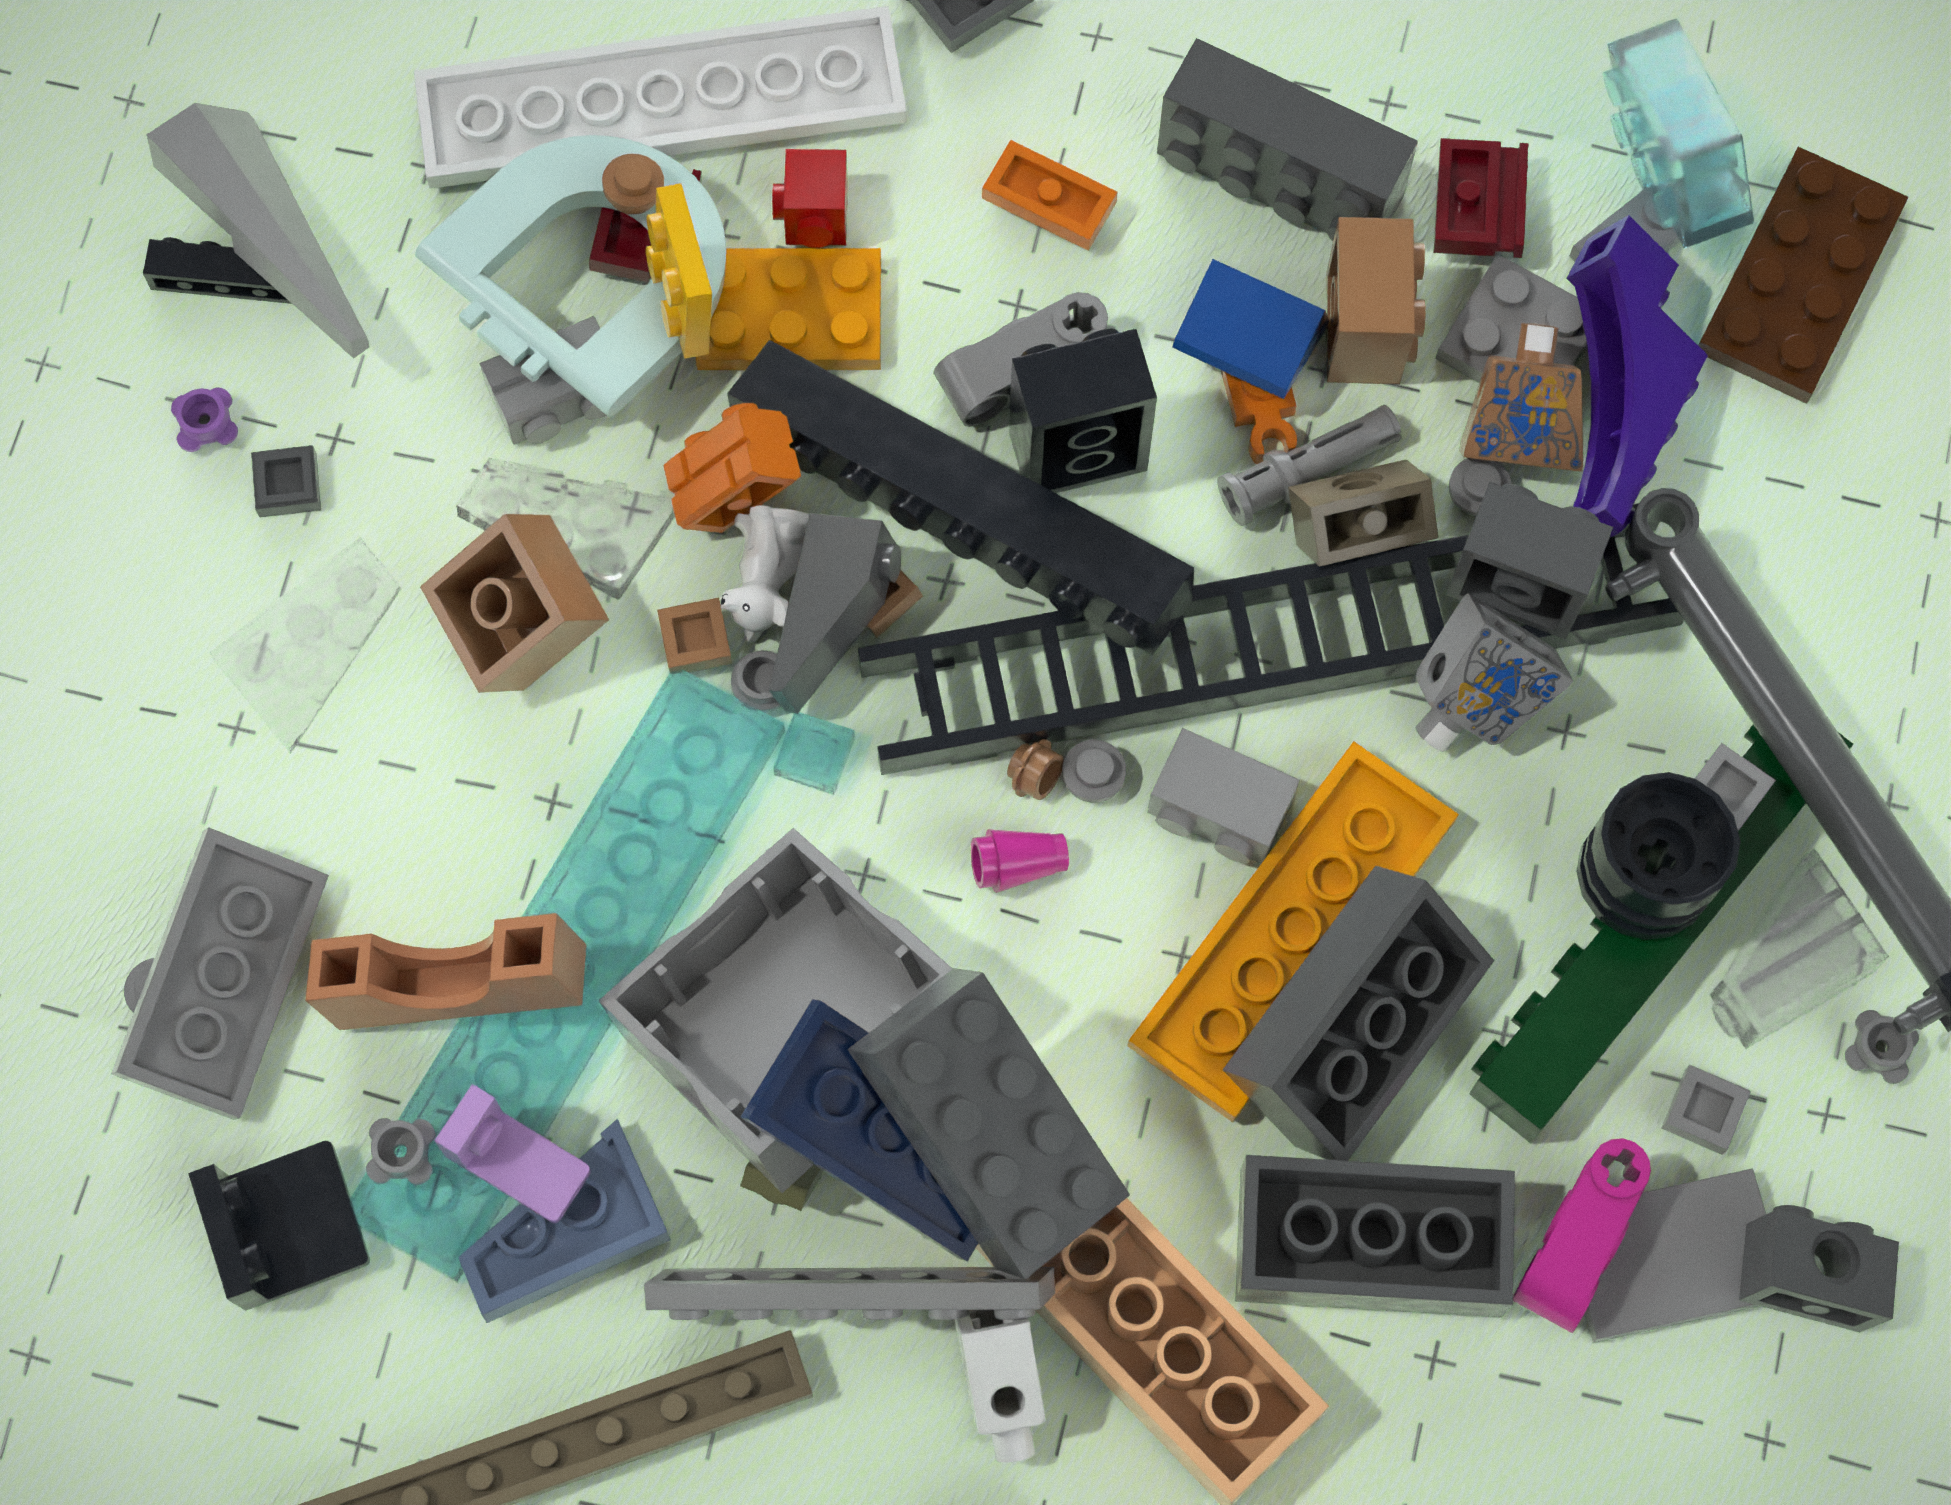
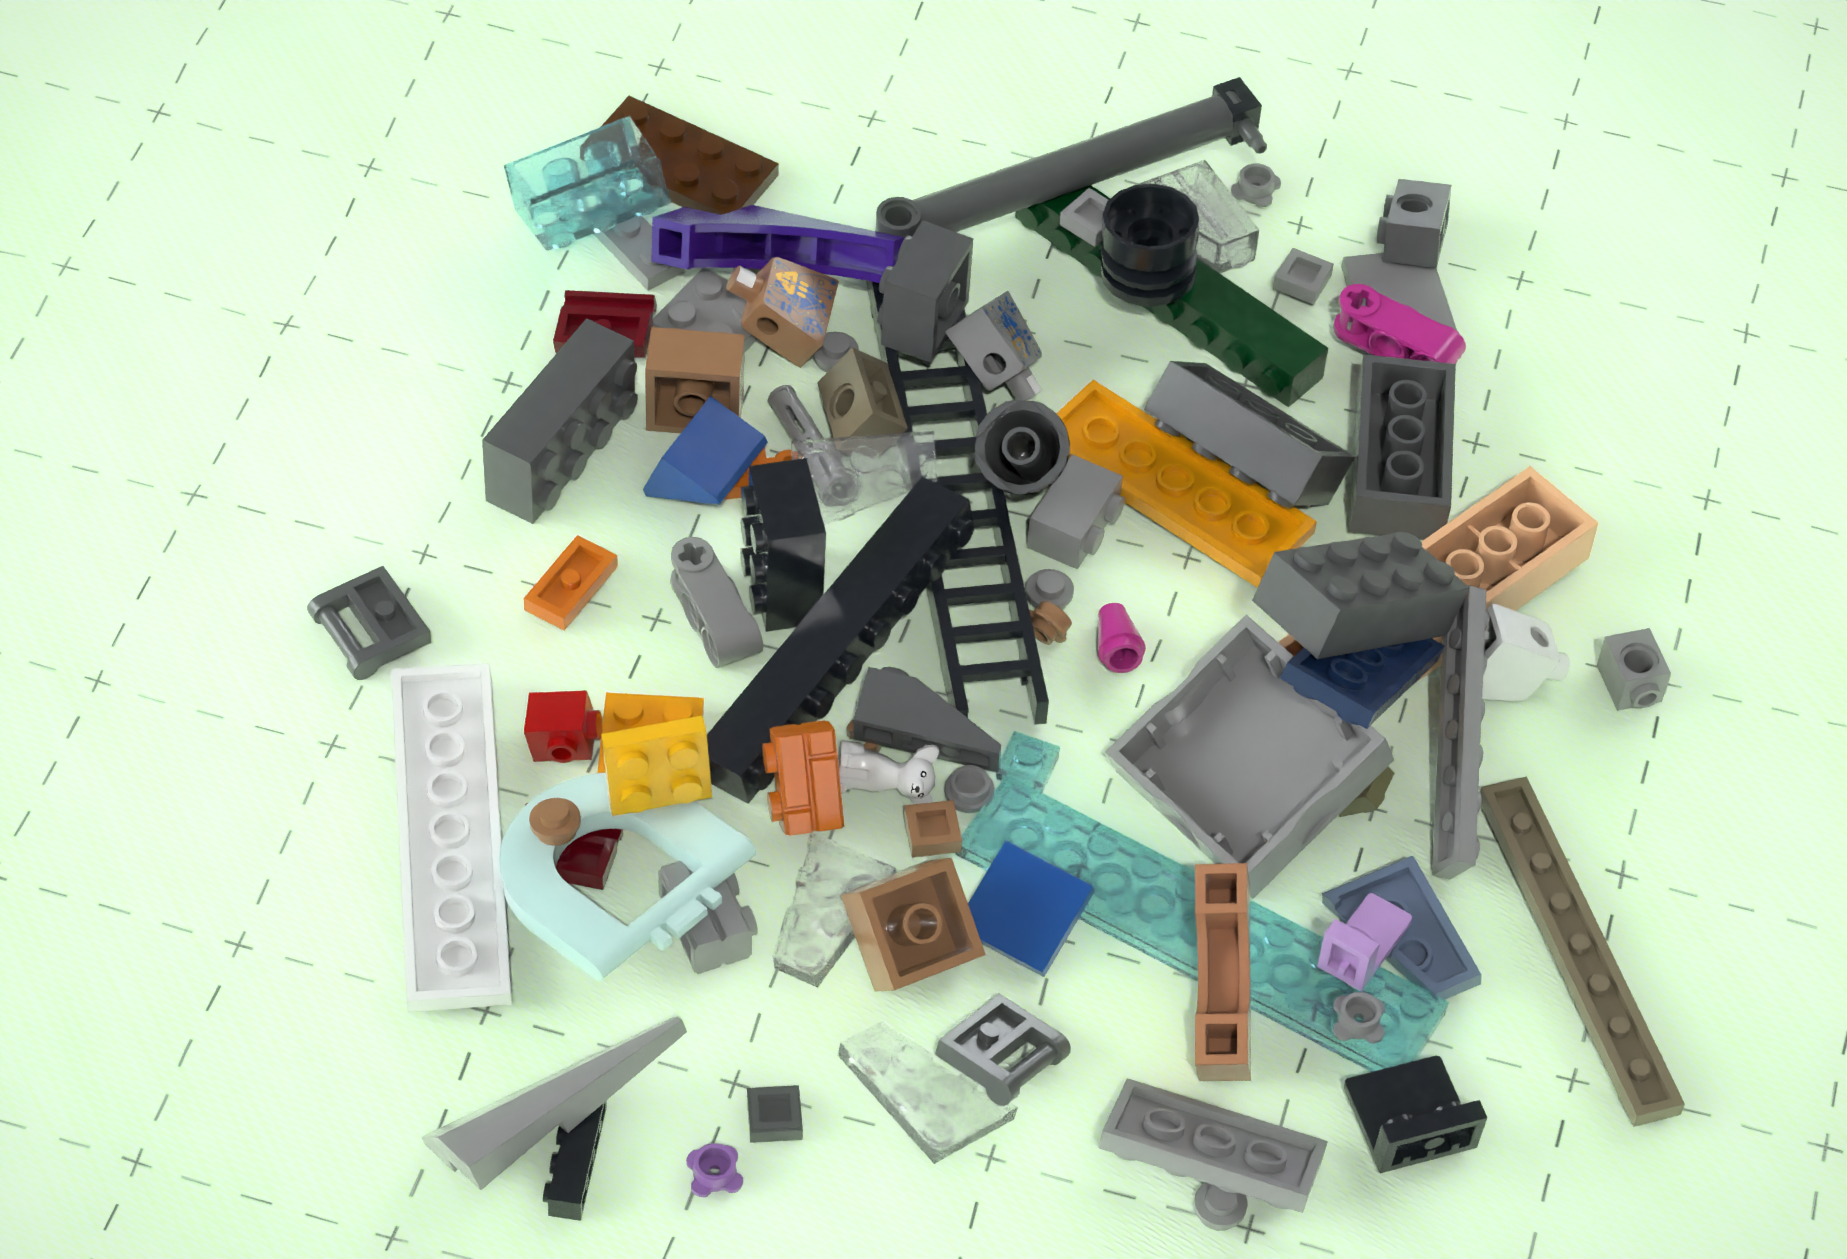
camera: 90 degrees left, 20 degrees down
(374, 709) = (991, 1037): none -> plate
(572, 747) = (1027, 907): none -> blue tile
(1227, 501) = (865, 469): none -> clear wing
(1260, 701) = (1022, 447): none -> dark grey cone

